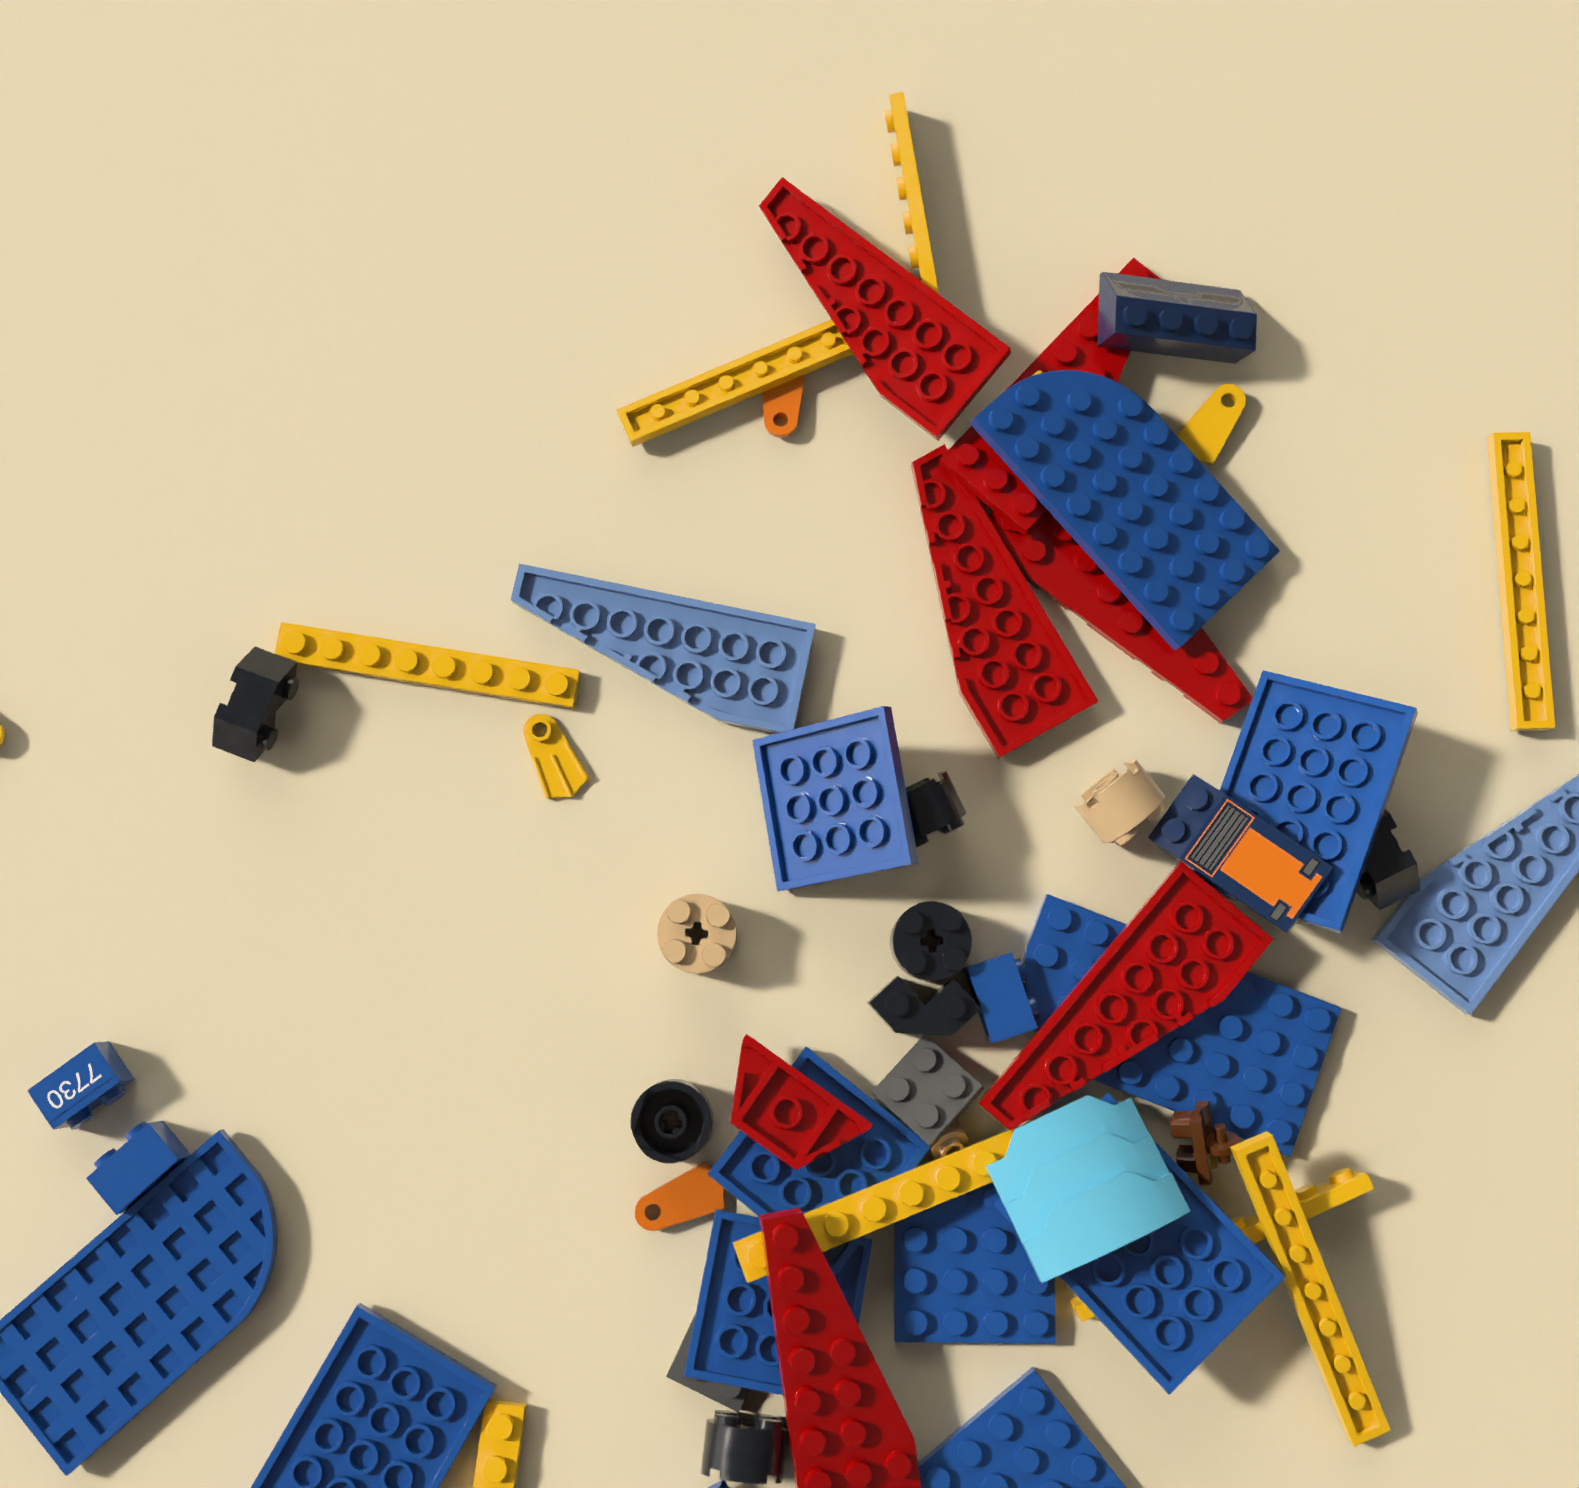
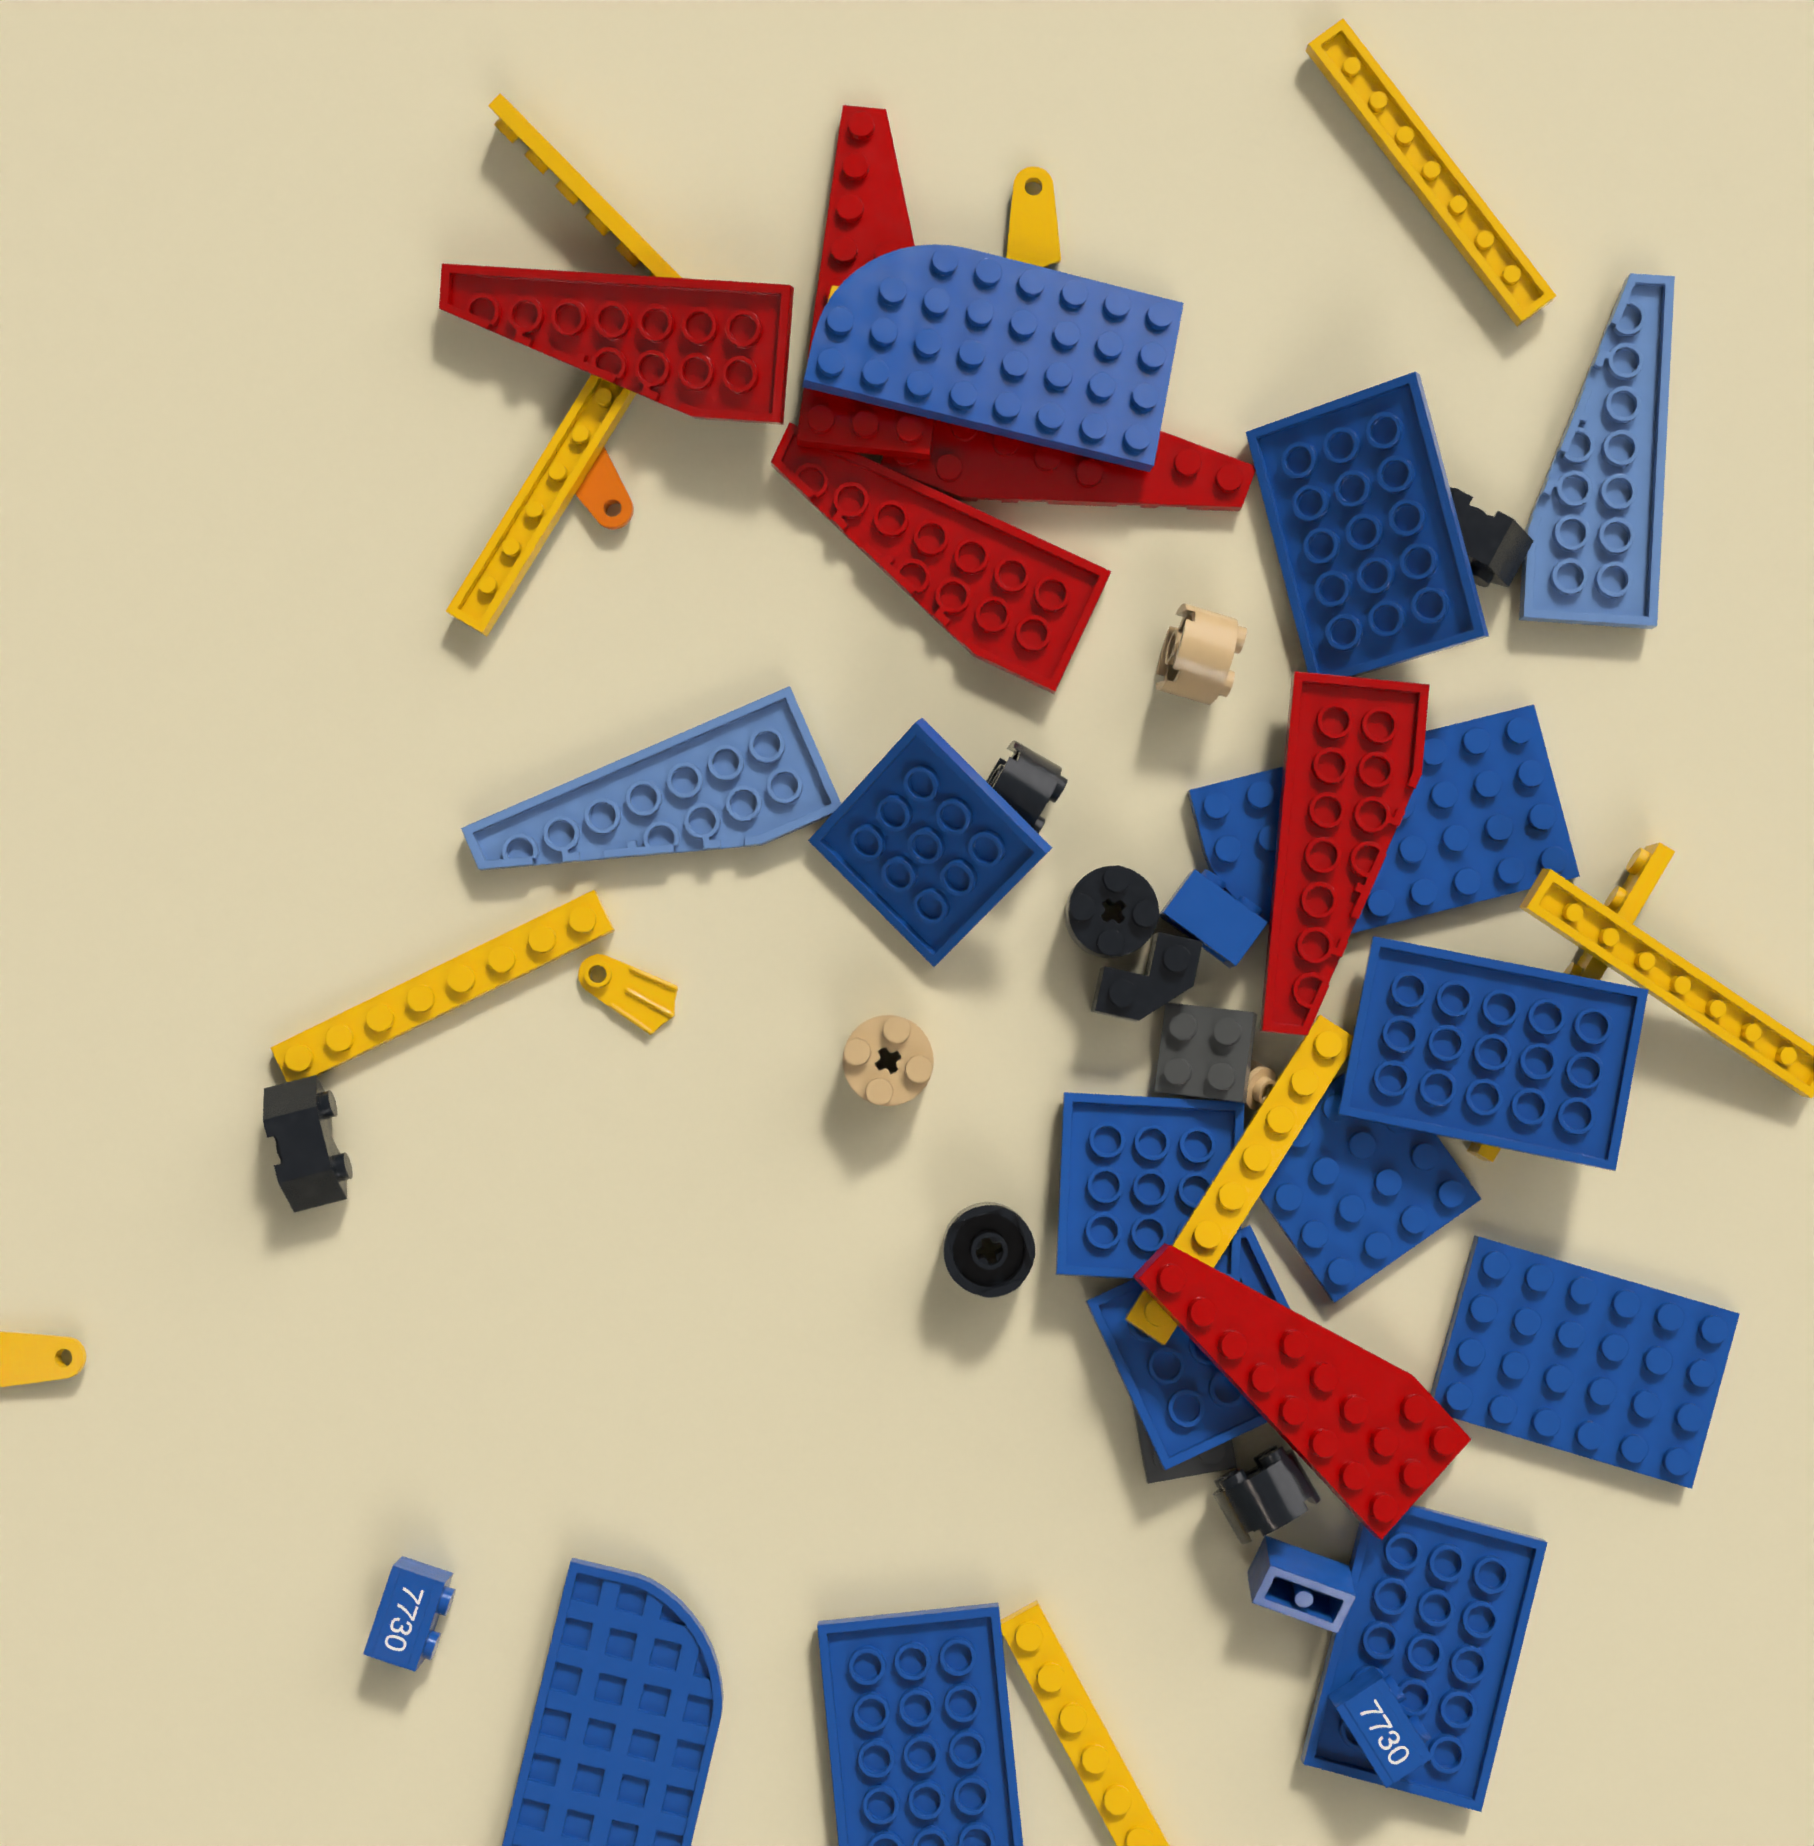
camera: 35 degrees left, 5 degrees up
(137, 1165) = (518, 1647): blue brick -> none
(681, 1199) = (1048, 1314): orange piece -> none
(787, 1109) = (1089, 1162): red wing -> none
(1084, 1184) = (1409, 1036): medium azure slope -> none
(1174, 318) = (926, 140): dark blue slope -> none
(1209, 1143) = (1496, 915): reddish brown hips -> none
(1240, 853) = (1344, 625): slope -> none

